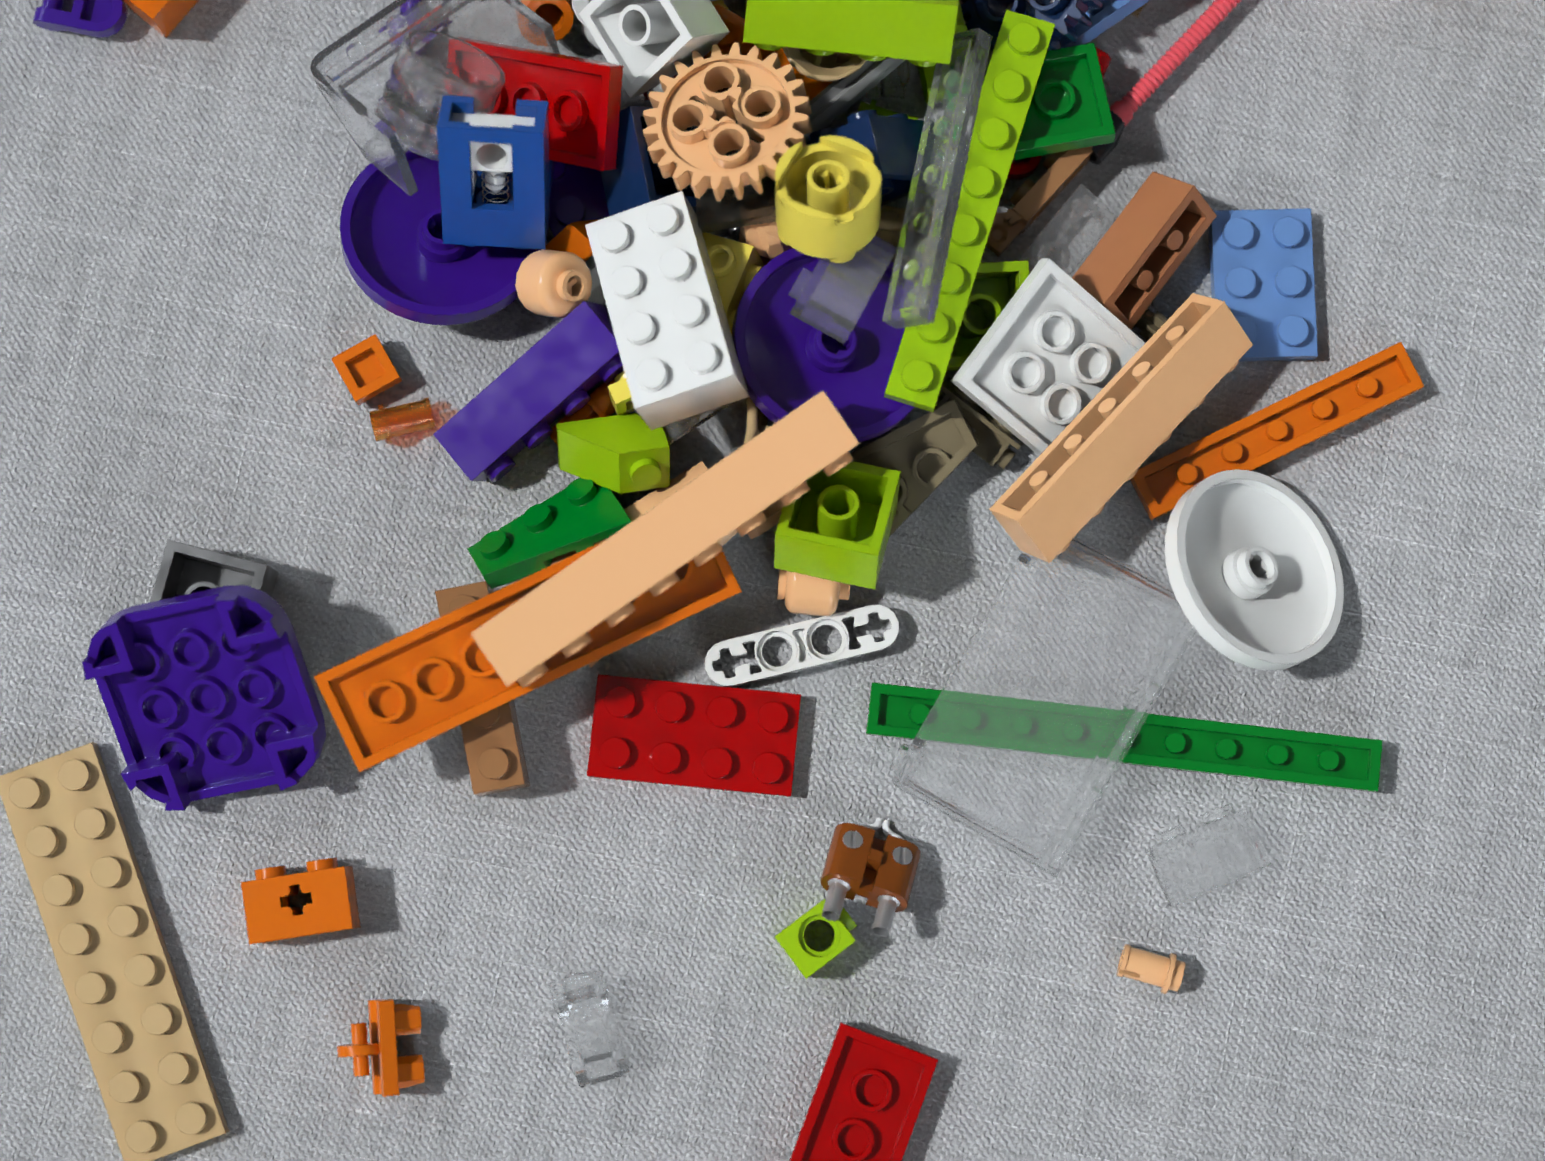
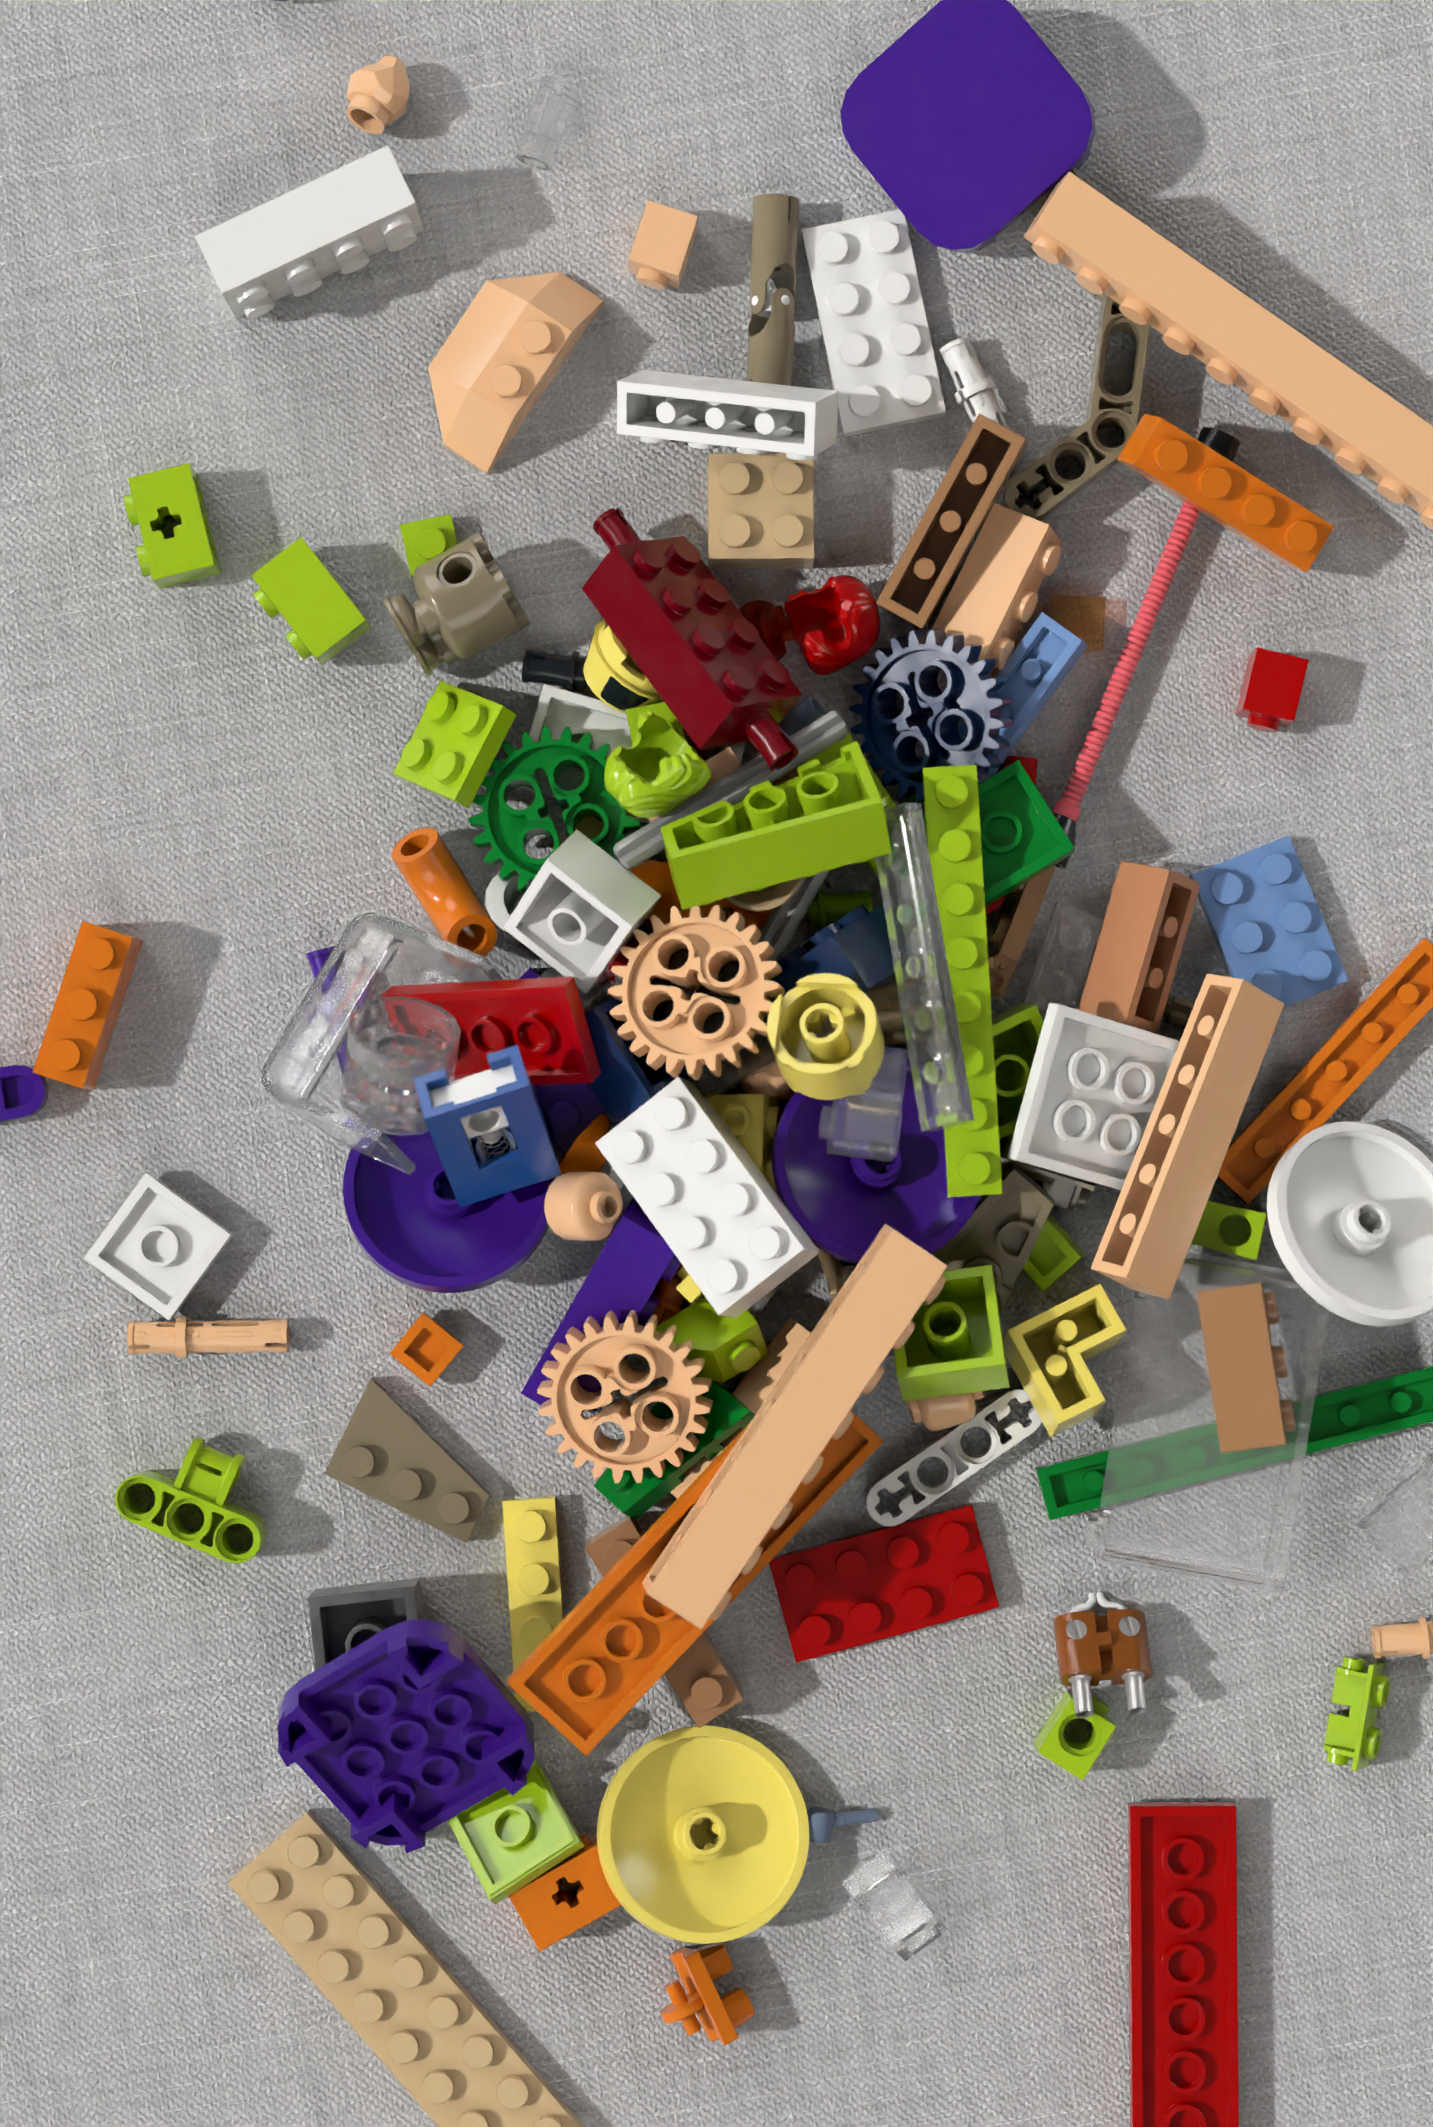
camera: 20 degrees left, 5 degrees up
(118, 414) = (207, 1490): none -> lime piece
(158, 278) = (217, 1336): none -> light nougat pin
(165, 190) = (158, 1246): none -> white plate
(271, 830) = (516, 1836): none -> lime tile
(304, 467) = (405, 1468): none -> dark tan wing
(383, 598) = (532, 1574): none -> light yellow plate
(402, 420) = (481, 1385): clear orange pin -> none
(440, 896) = (703, 1834): none -> light yellow dish
(520, 420) = (646, 1437): none -> light nougat gear
(552, 931) = (822, 1821): none -> sand blue hand
(926, 580) = (1051, 1355): none -> light yellow brick
(958, 496) = (1052, 1255): none -> lime plate
(1076, 1036) = (1363, 1693): none -> lime hinge
(1096, 648) = (1245, 1367): none -> medium nougat brick
(1125, 533) = (1230, 1230): none -> lime leg
(1343, 74) = (1271, 689): none -> red brick

